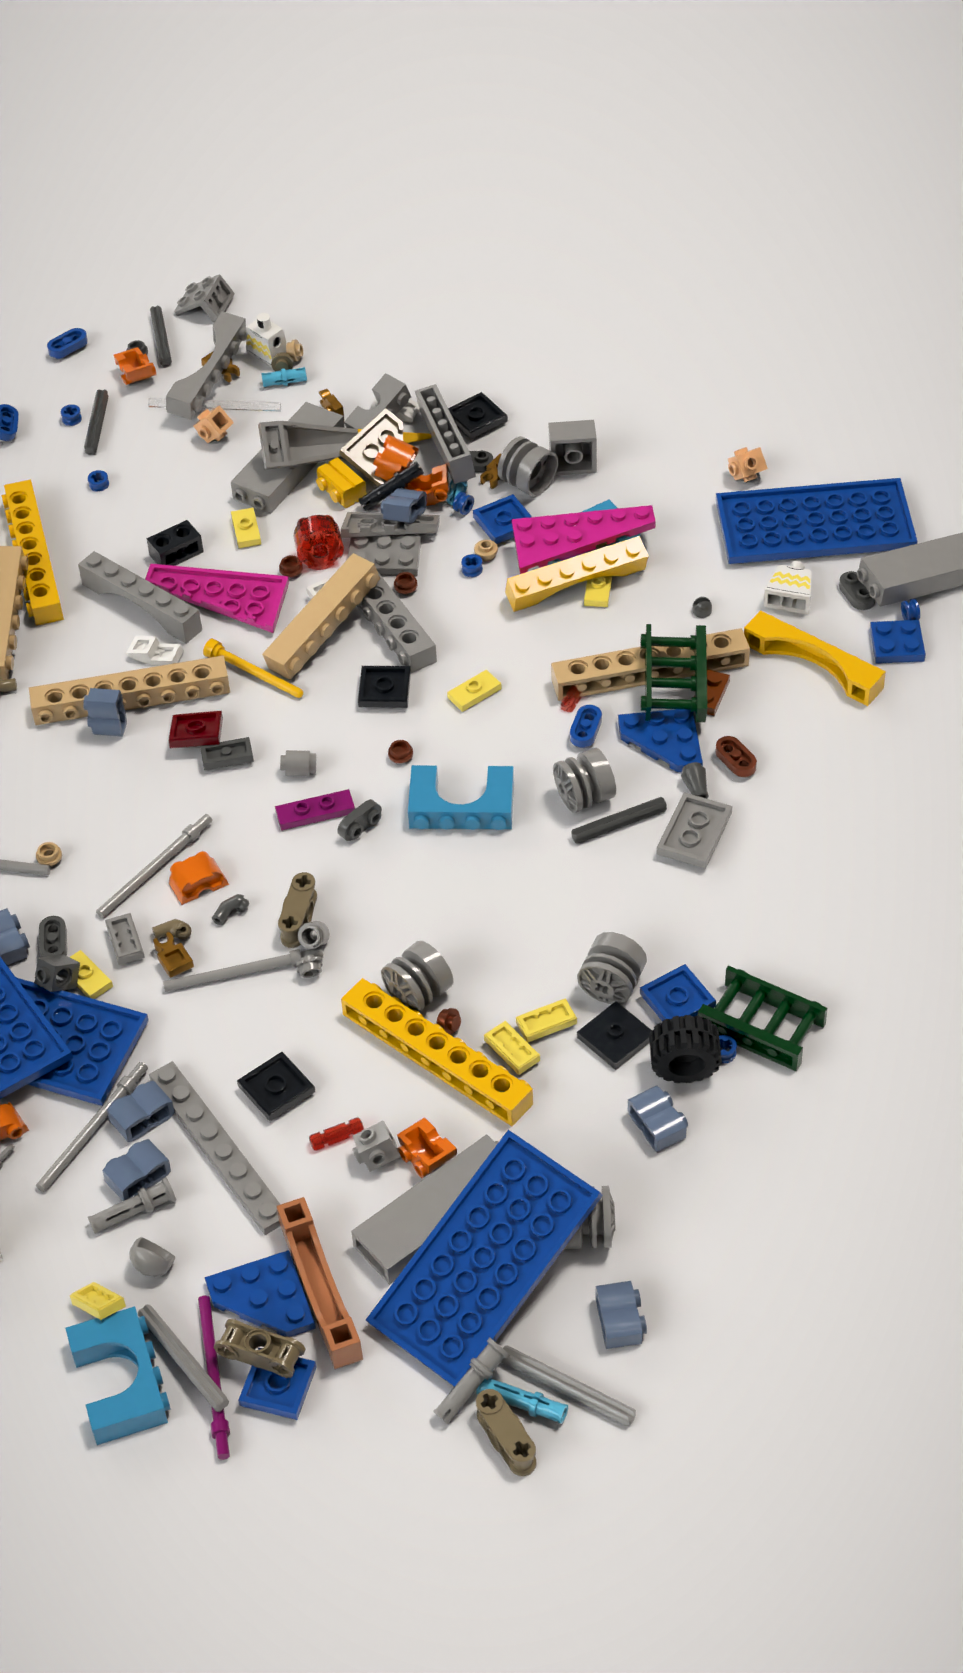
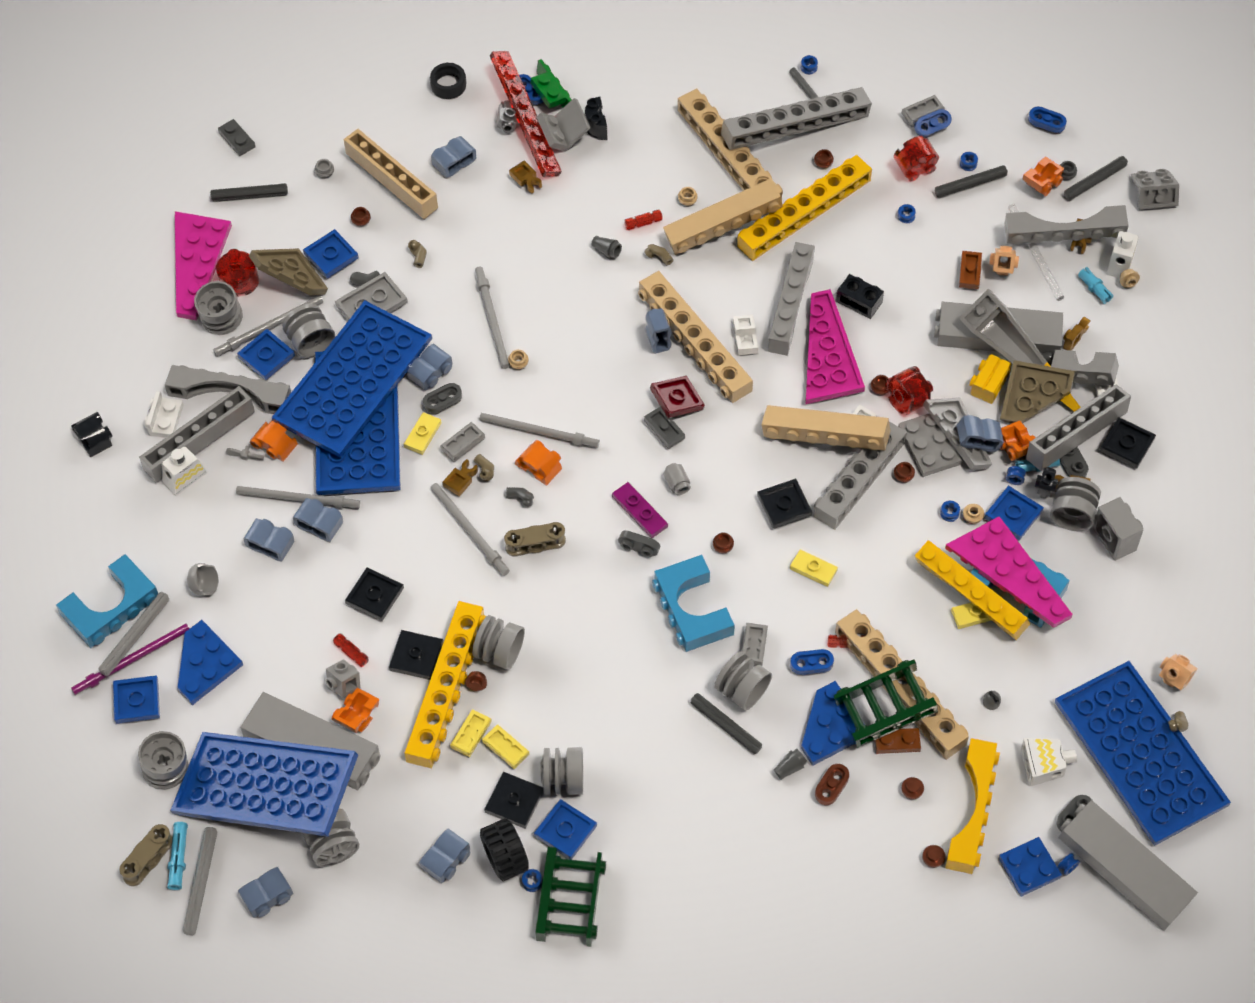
camera: 65 degrees right, 10 degrees up
(43, 443) = (916, 157): none -> clear red brick
(57, 972) = (407, 413): dark grey brick -> none
(97, 1300) = (155, 563): light yellow plate -> none
(145, 1200) = (247, 556): light grey pin -> none
(202, 455) = (970, 270): none -> dark orange plate
(215, 648) = (765, 373): yellow piece -> none
(219, 1147) = (311, 581): light grey plate -> none
(246, 528) = (908, 335): light yellow plate -> none
(278, 1353) = (148, 687): dark tan piece -> none
(281, 361) = (1109, 276): dark tan plate -> none
(306, 938) = (512, 558): light grey brick -> none
(309, 966) = (487, 569): light grey plate -> none
(327, 1306) = (251, 663): nougat arch -> none
(379, 1071) = (416, 654): none -> black plate
(388, 1368) = (160, 749): none -> light grey wheel
(395, 457) = (1028, 404): orange cylinder -> none
(399, 480) = (1004, 417): black pin -> none
(481, 1369) = (182, 817): light grey pin -> none
(491, 479) = (1046, 482): none -> black piece
(535, 764) = (755, 642): none -> light grey plate
(694, 830) = (739, 781): light grey plate -> none
(770, 697) = (912, 788): none -> copper plate
(803, 481) = (1179, 723): none -> dark tan arm
(853, 707) = (933, 856): none -> copper plate

